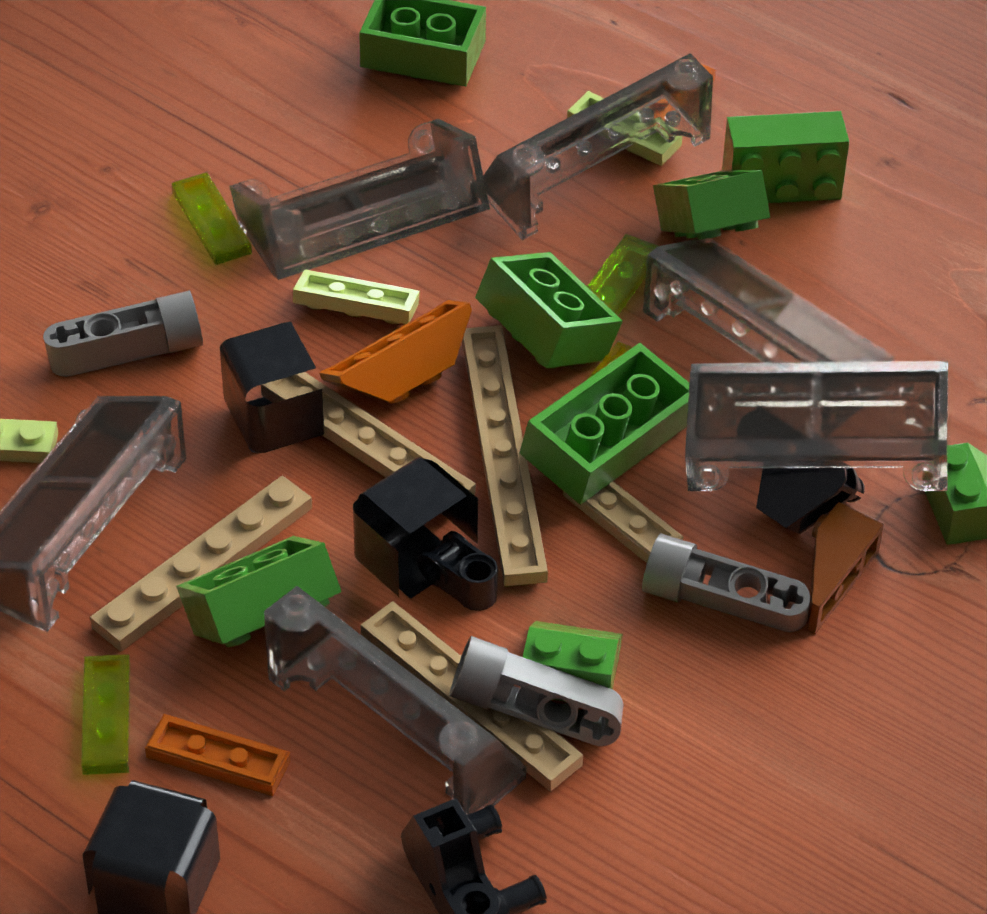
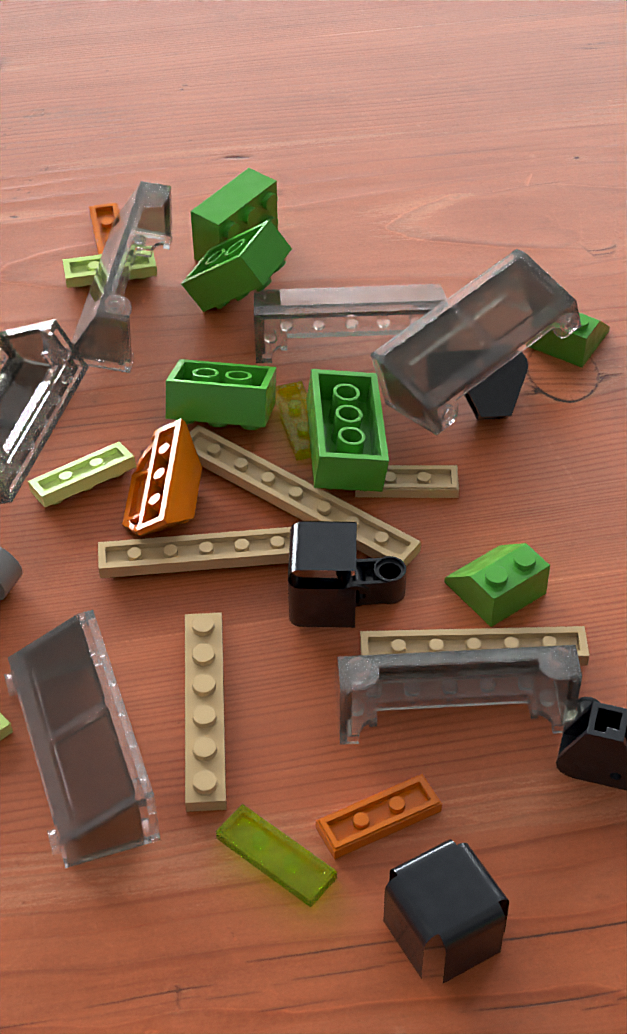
camera: 45 degrees left, 0 degrees up
(233, 597) = (284, 689): bright green brick -> none
(264, 358) = (105, 557): black piece -> none
(487, 680) = (504, 617): light grey beam -> none
(622, 272) = (217, 342): clear neon green tile -> none
(678, 572) = (494, 481): light grey beam -> none
(842, 552) = (555, 416): dark orange slope -> none

